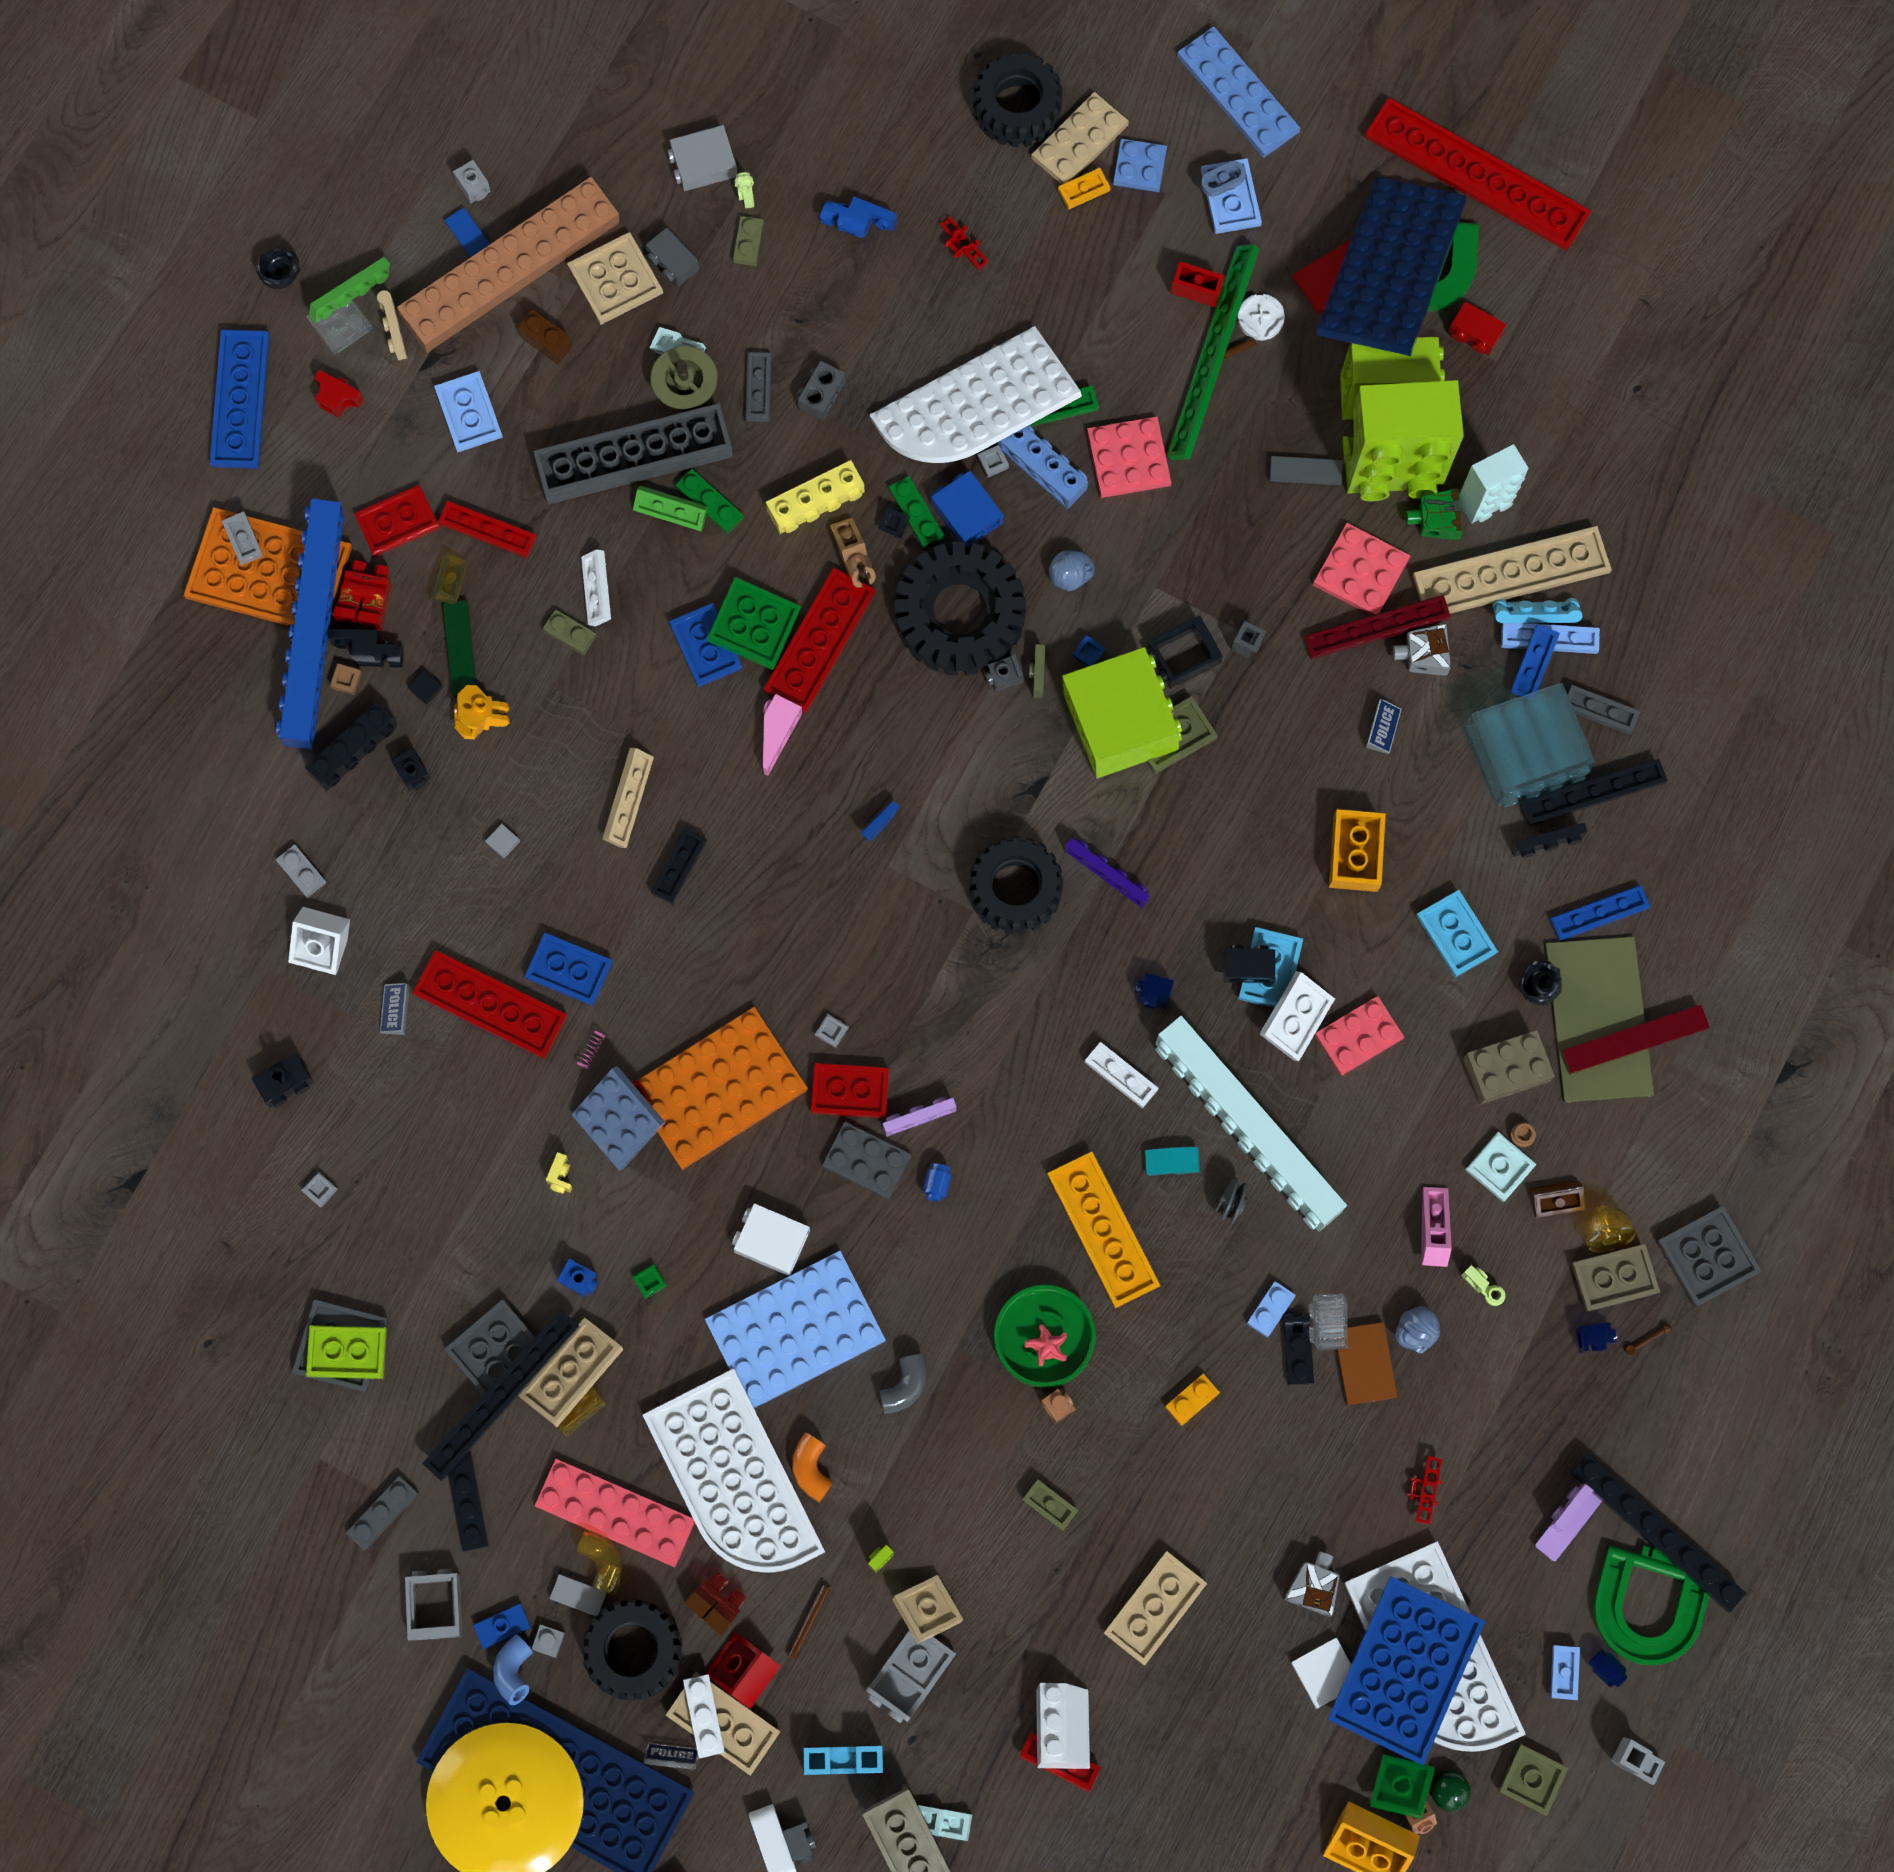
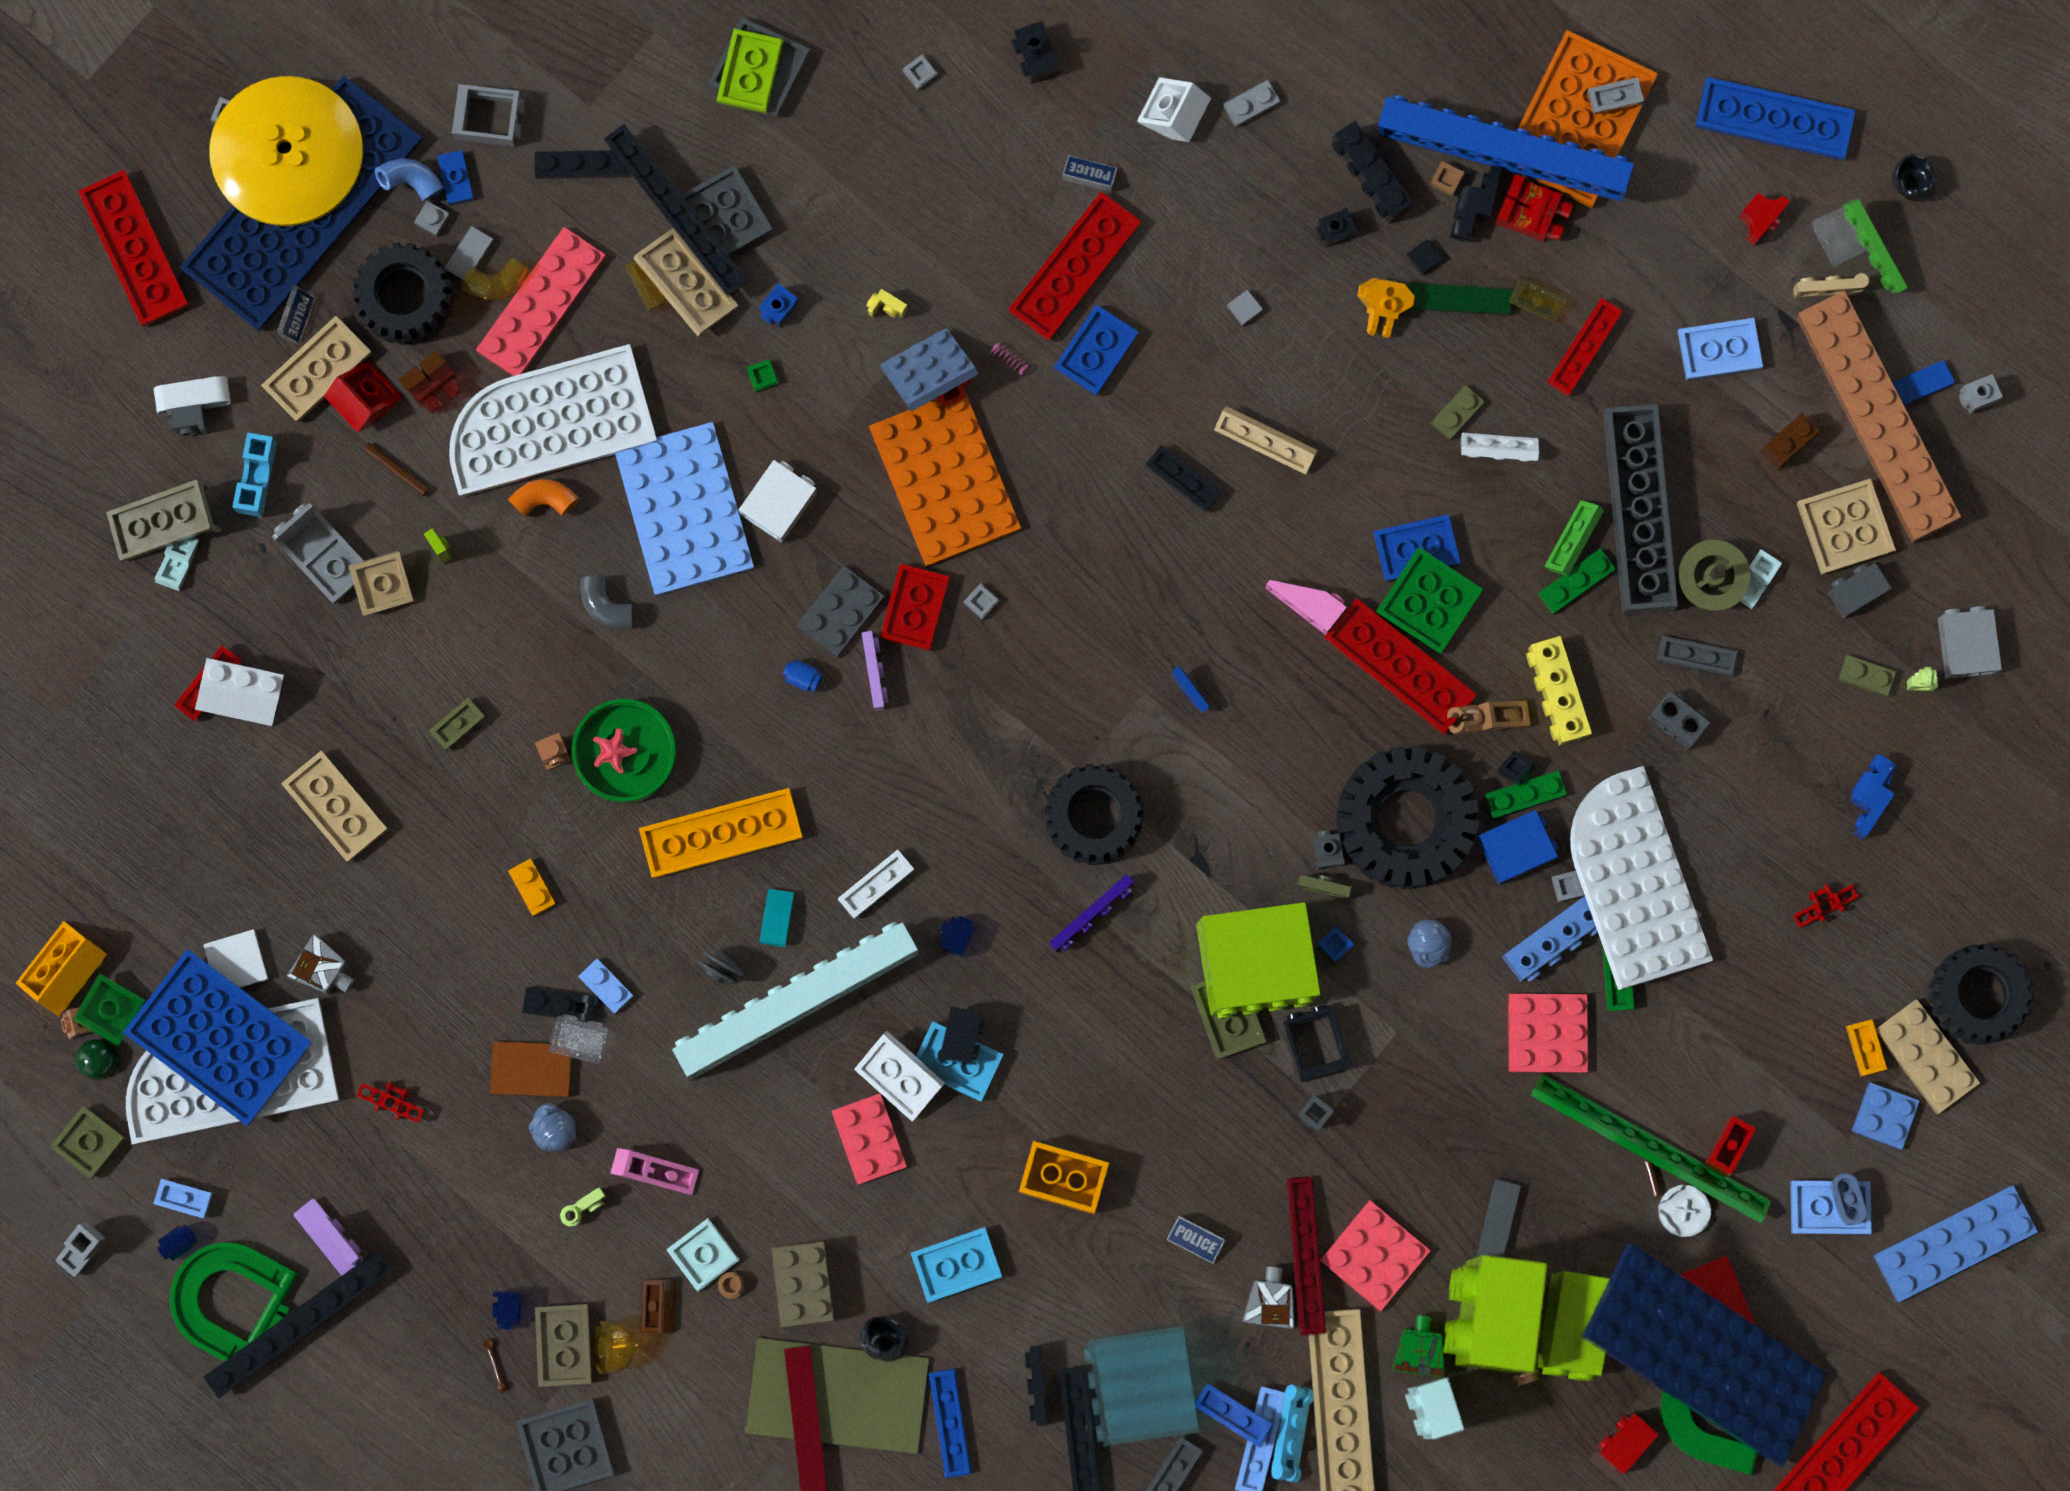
camera: 100 degrees right, 5 degrees up
(382, 1513) = (588, 82): dark grey plate -> none
(396, 520) = (1612, 257): red tile -> none
(703, 1716) = (325, 350): white plate -> none

